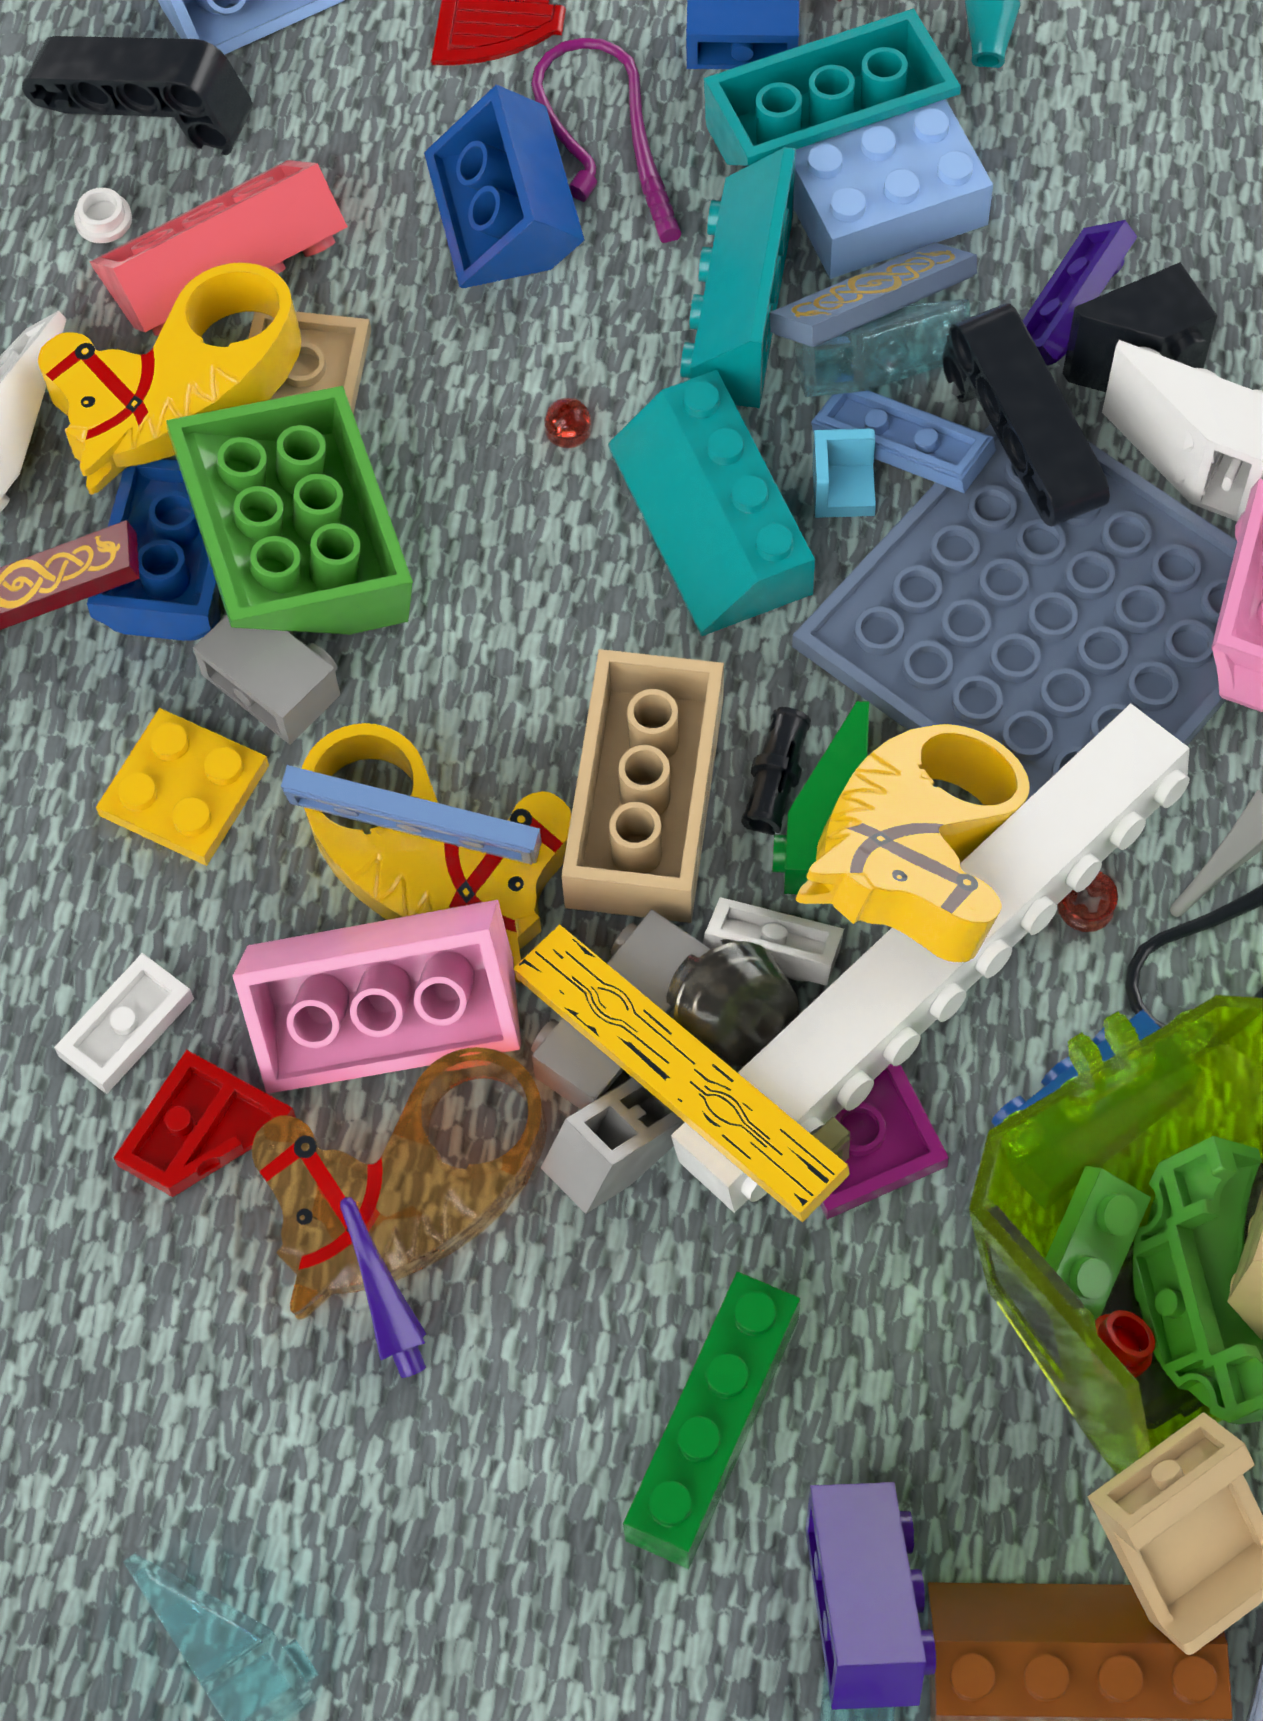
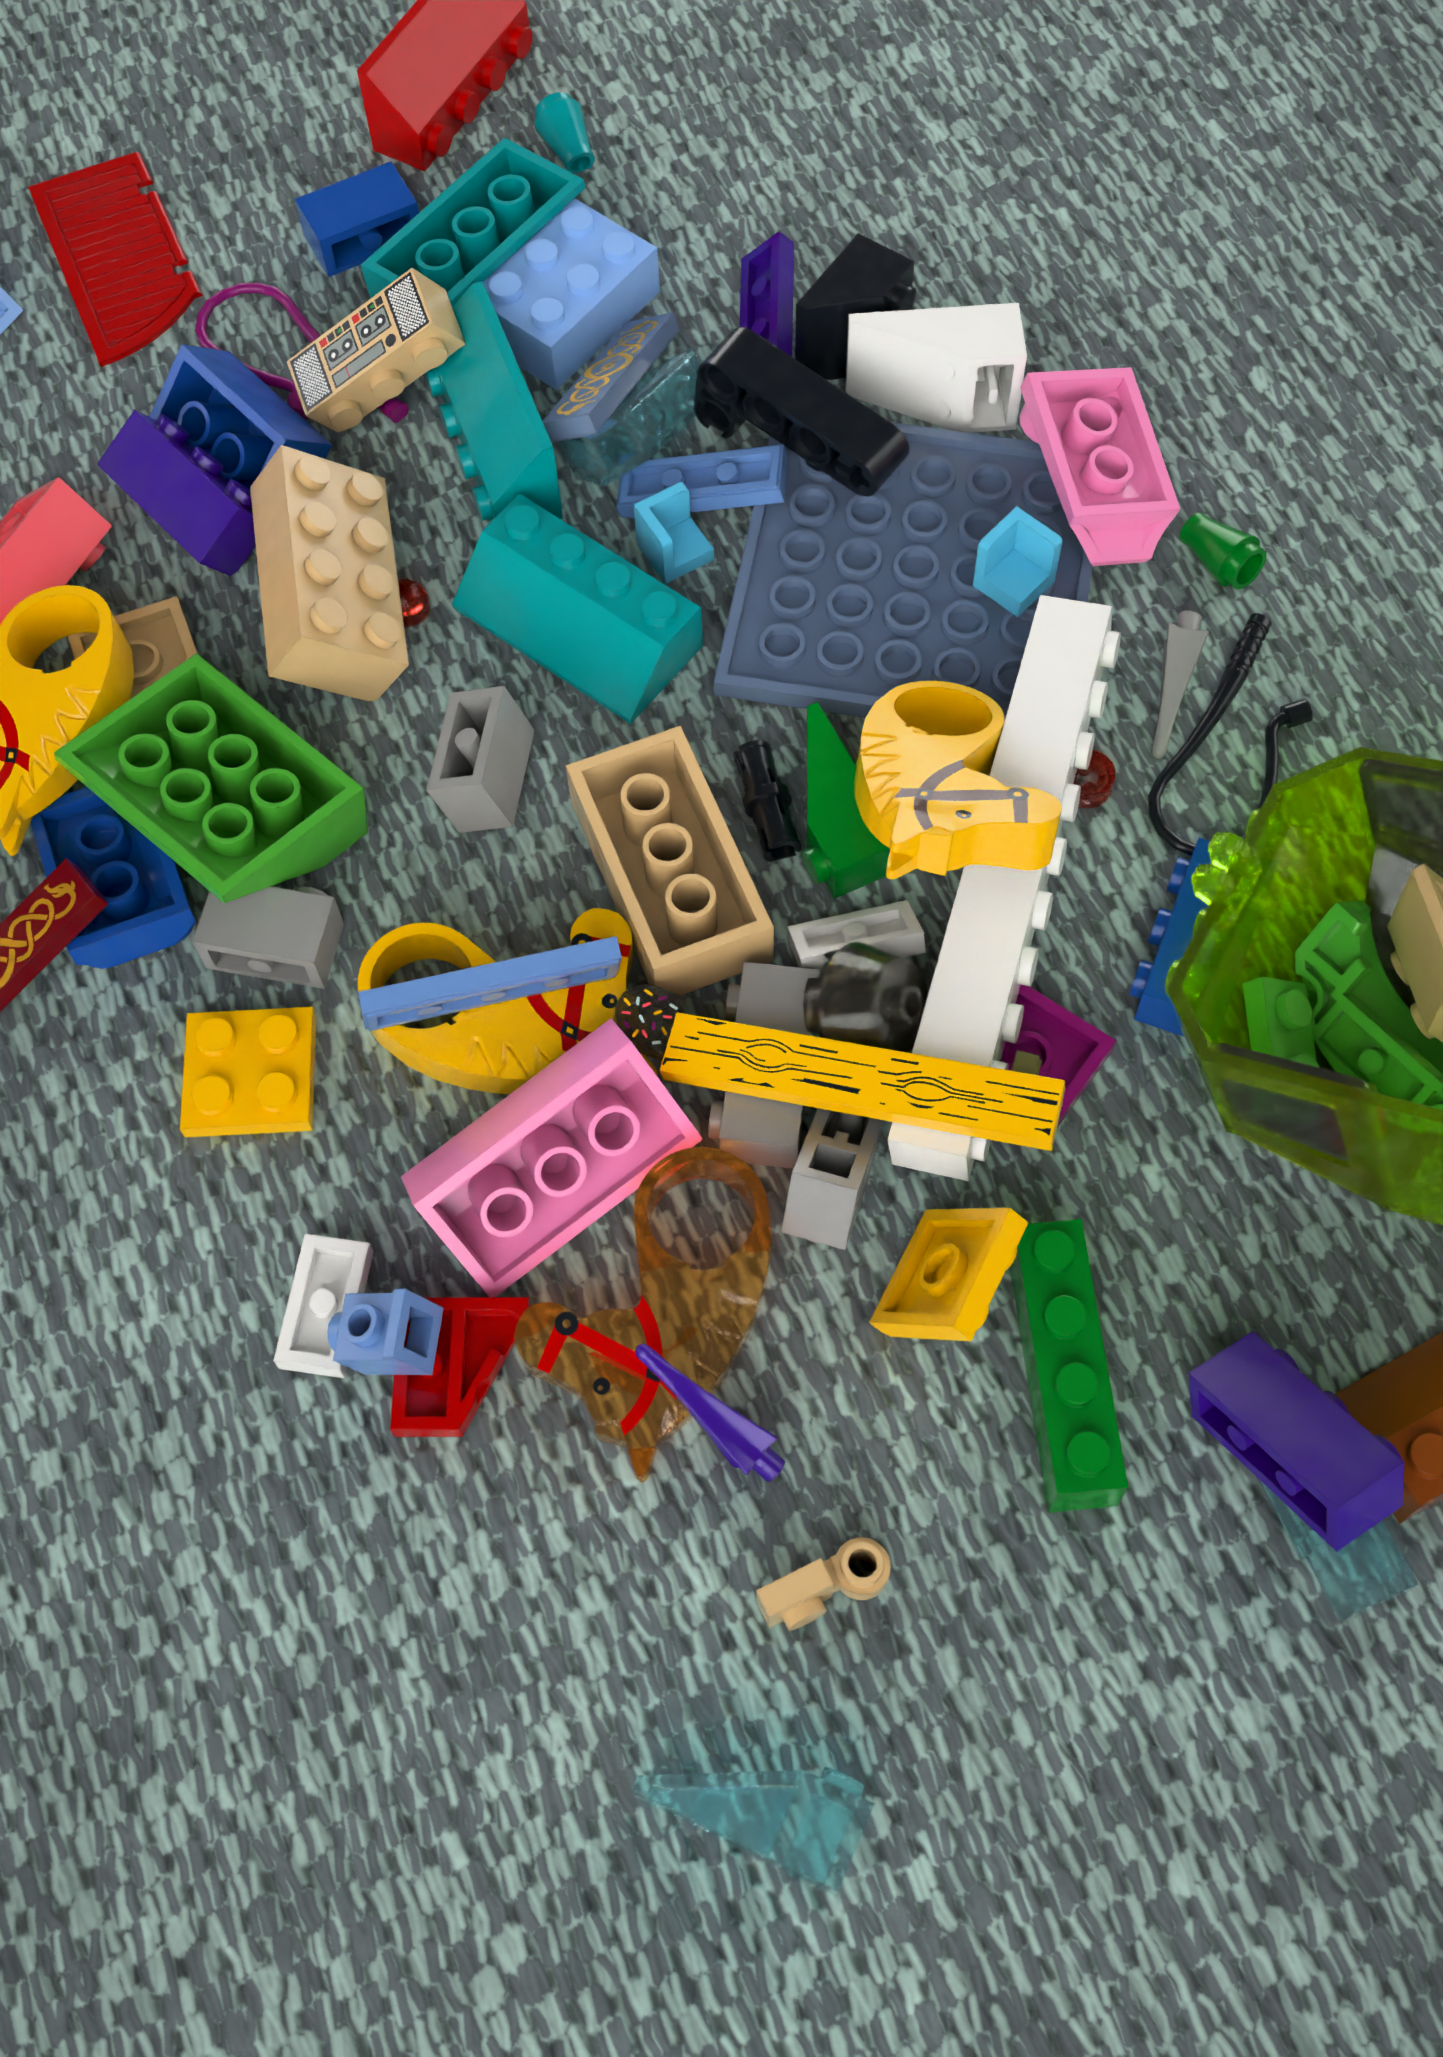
camera: 30 degrees left, 0 degrees up
(137, 1065) = (373, 1333): none -> medium blue brick
(365, 1485) = (801, 1594): none -> tan plate
(427, 225) = (183, 490): none -> dark purple brick
(502, 366) = (327, 576): none -> tan brick
(534, 912) = (647, 1017): none -> clear smoke tile
(537, 605) = (481, 759): none -> light grey brick
(658, 1284) = (949, 1273): none -> yellow plate
(668, 170) = (376, 351): none -> brick
(1139, 659) = (1017, 561): none -> medium azure panel

